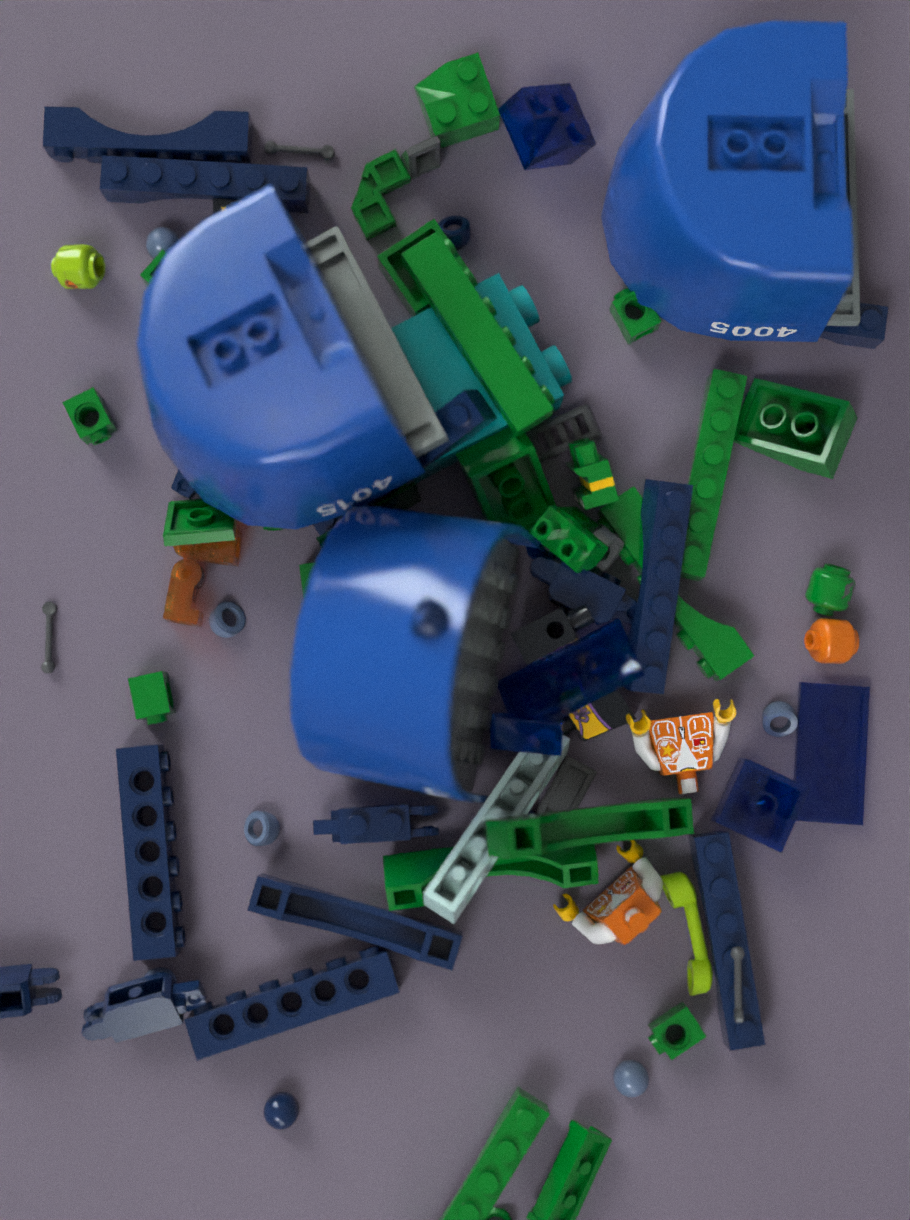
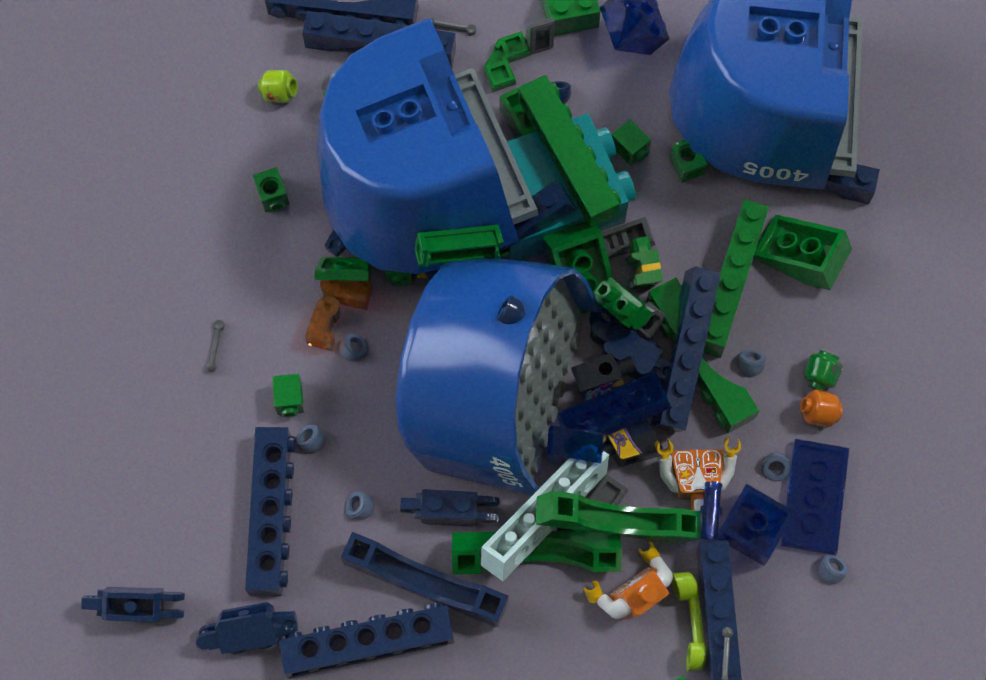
camera: 10 degrees right, 15 degrees down
(196, 752) = (315, 443): none -> sand blue piece
(347, 502) = (458, 244): none -> green container
(558, 298) = (631, 142): none -> green brick
(704, 797) = (711, 510): none -> clear blue pin
(734, 592) = (750, 367): none -> sand blue piece
(852, 850) = (828, 573): none -> sand blue piece

